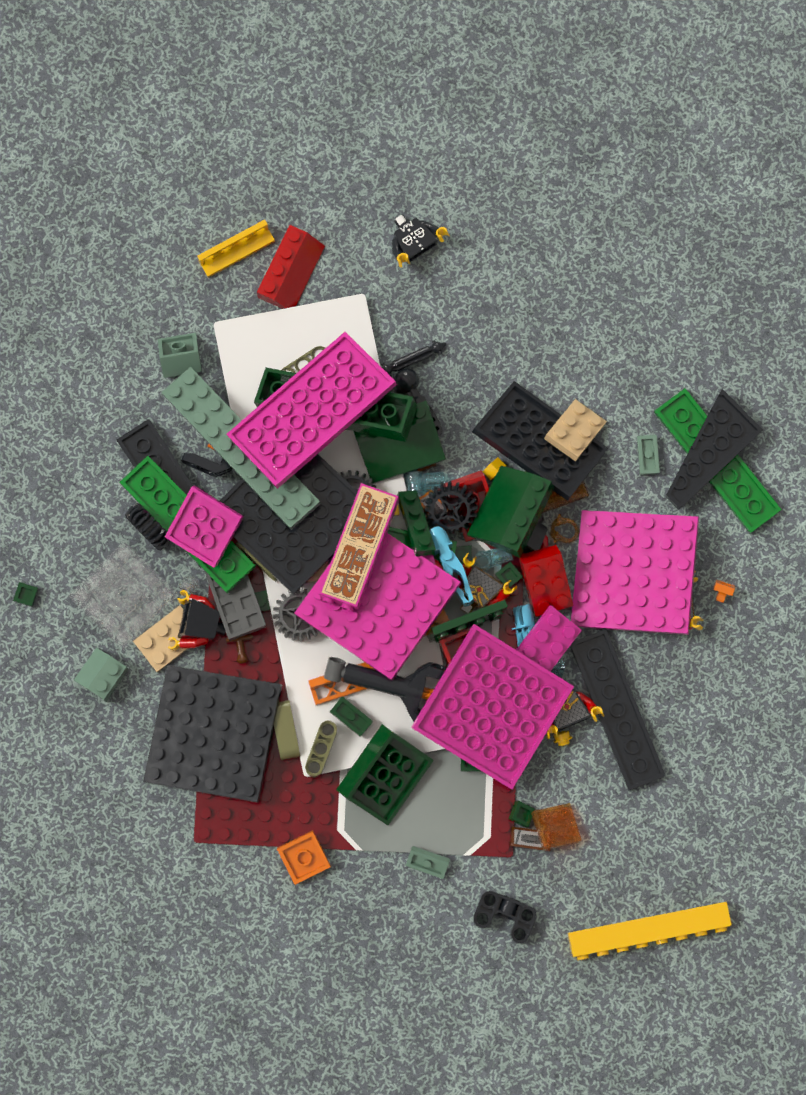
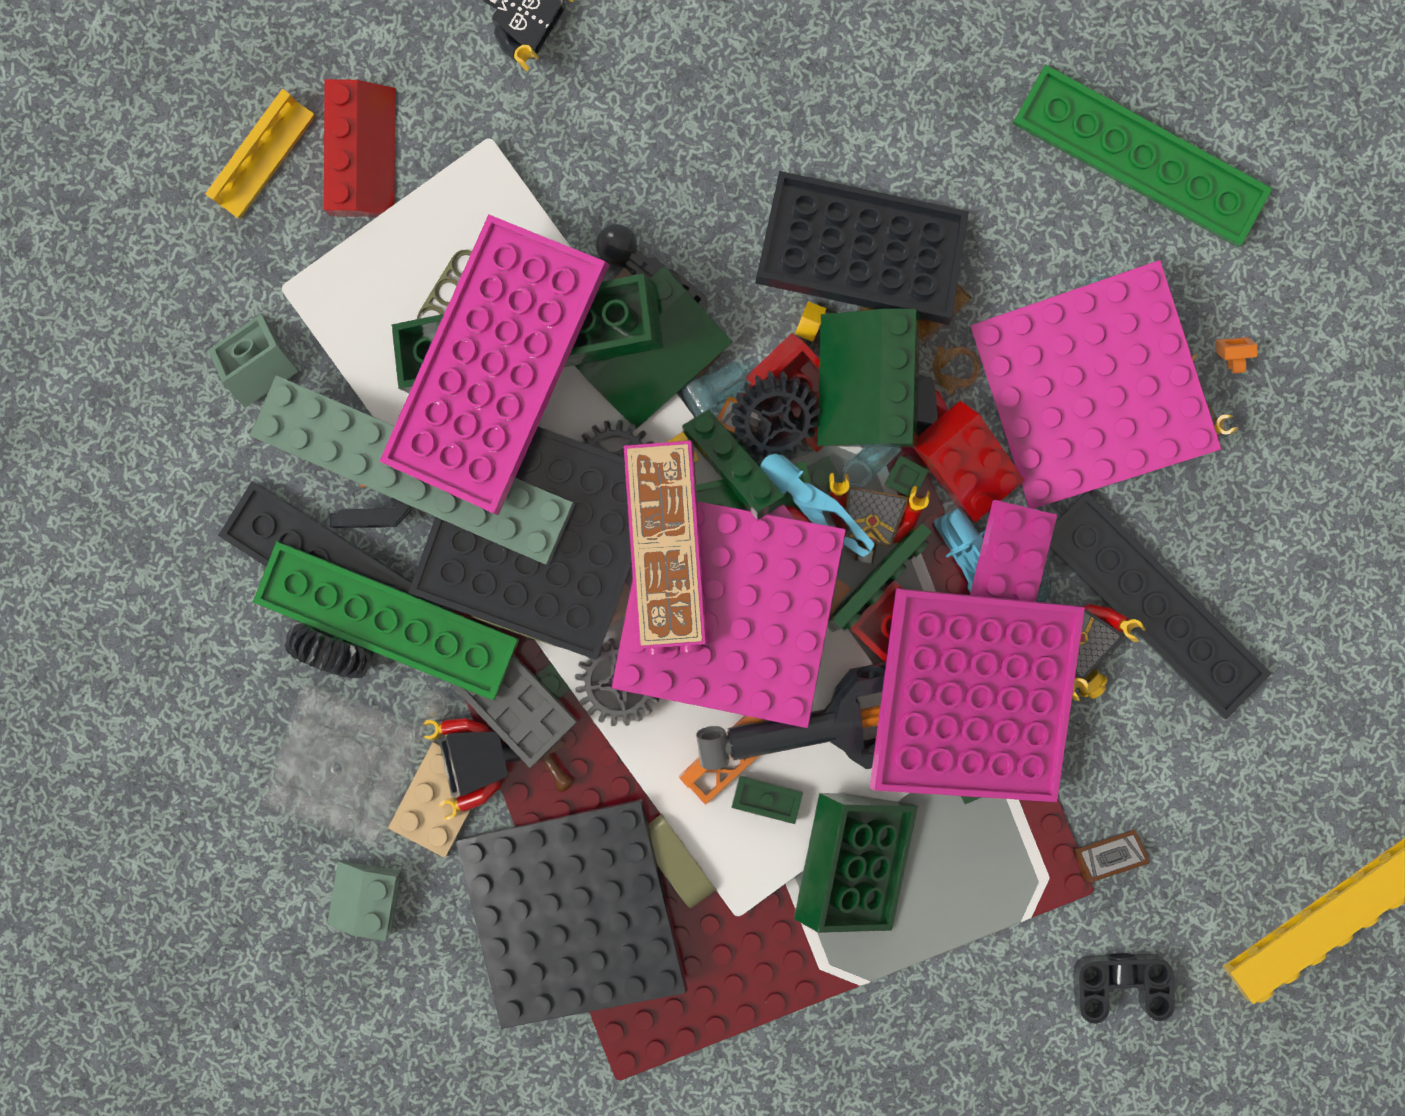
camera: 25 degrees left, 10 degrees up
(25, 594) = (194, 830): dark green plate -> none
(204, 526) = (412, 618): dark pink plate -> none
(303, 857) = (789, 1034): orange plate -> none
(324, 739) = (744, 884): olive beam -> none
(414, 357) = (609, 205): black wheel -> none
(427, 862) = (975, 958): sand green plate -> none
(521, 814) = (1082, 825): dark green plate -> none
(556, 826) = (1142, 821): clear orange tile -> none
(575, 430) = (908, 206): tan plate -> none
(648, 455) = (1033, 194): sand green plate -> none
(719, 441) = (1134, 127): black wing -> none

